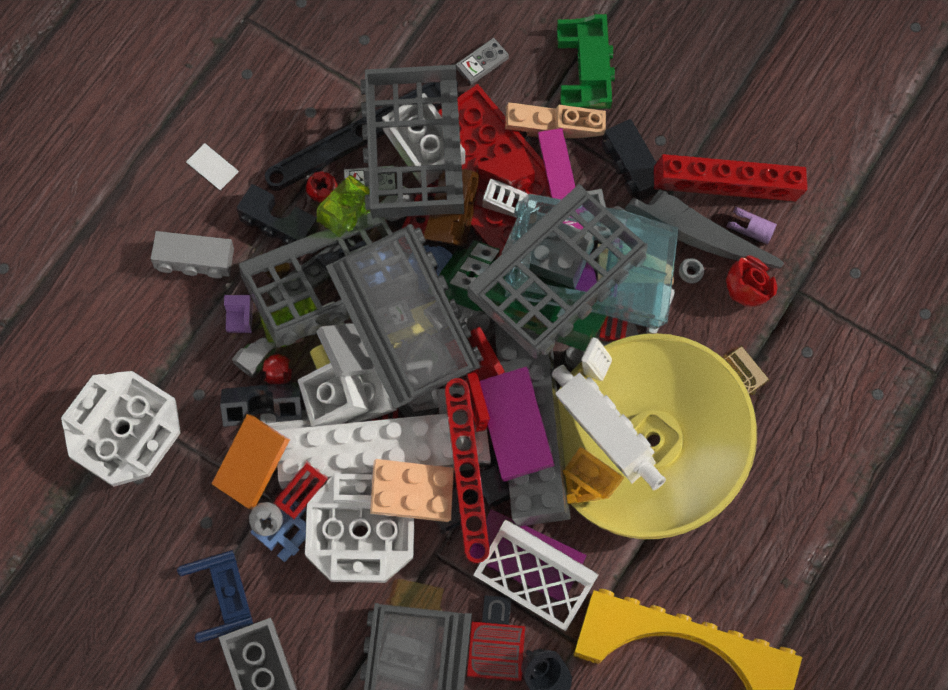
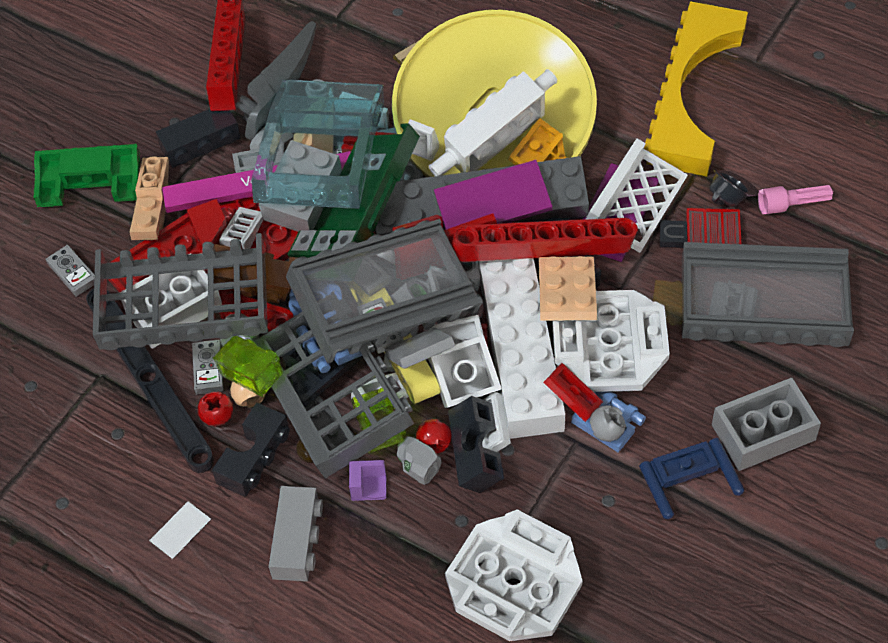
camera: 85 degrees left, 15 degrees down
(250, 461) = (543, 446): orange tile -> none
(528, 242) = (330, 180): dark grey window -> none
(750, 283) = (335, 42): red cylinder -> none
(758, 228) = (274, 42): lavender hinge -> none

